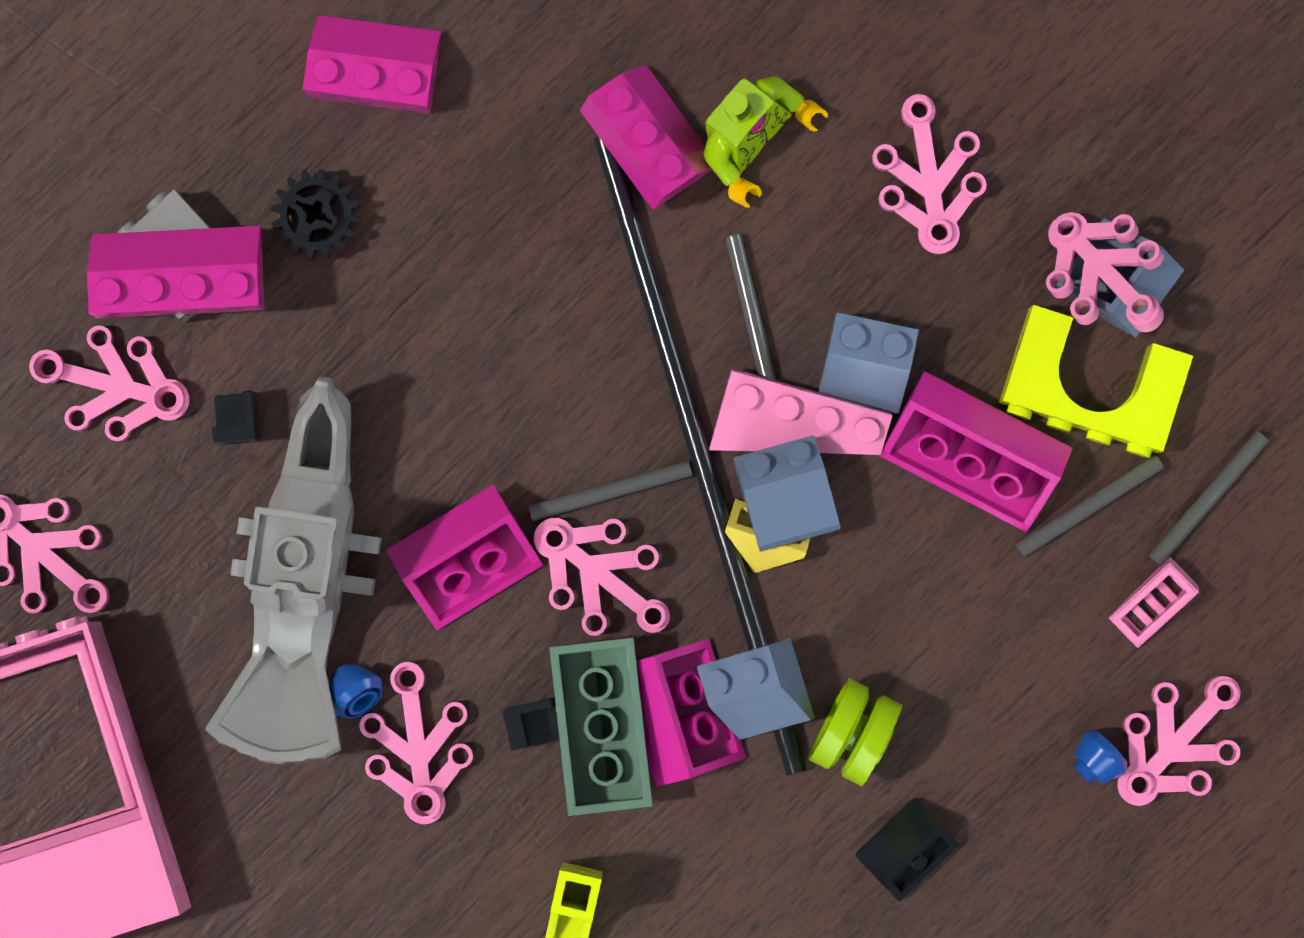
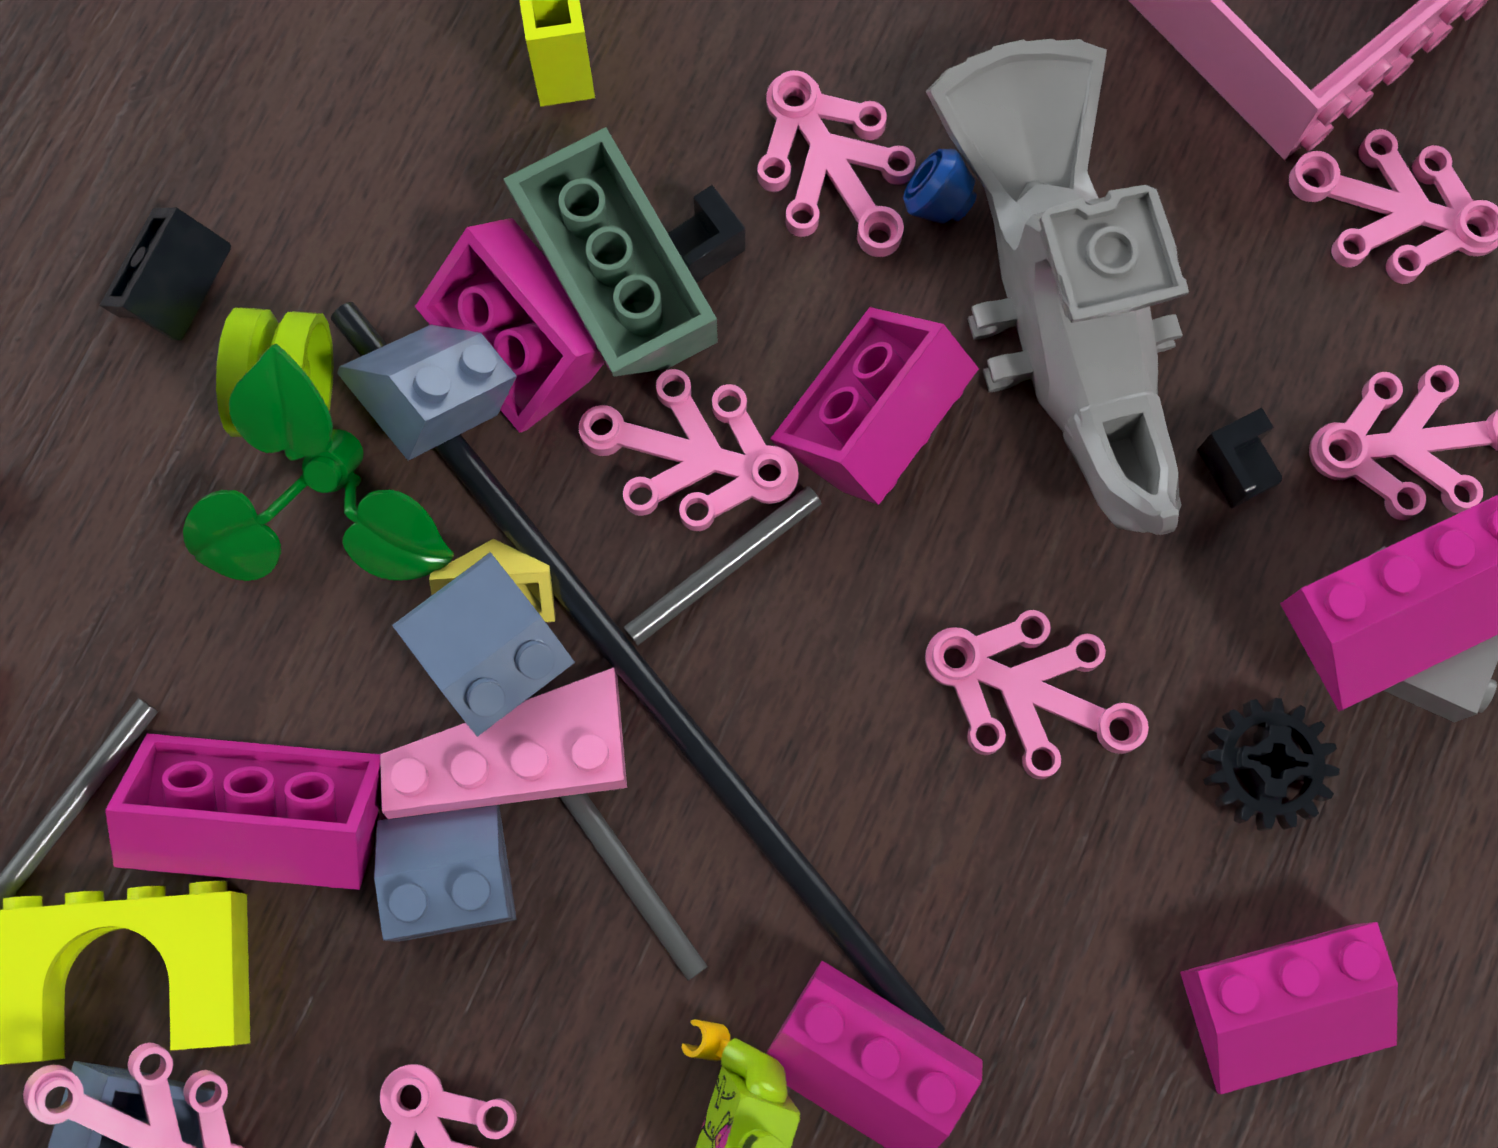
camera: 155 degrees right, 10 degrees down
(449, 329) = (1024, 688): none -> bright pink plant
(850, 671) = (282, 410): none -> green plant

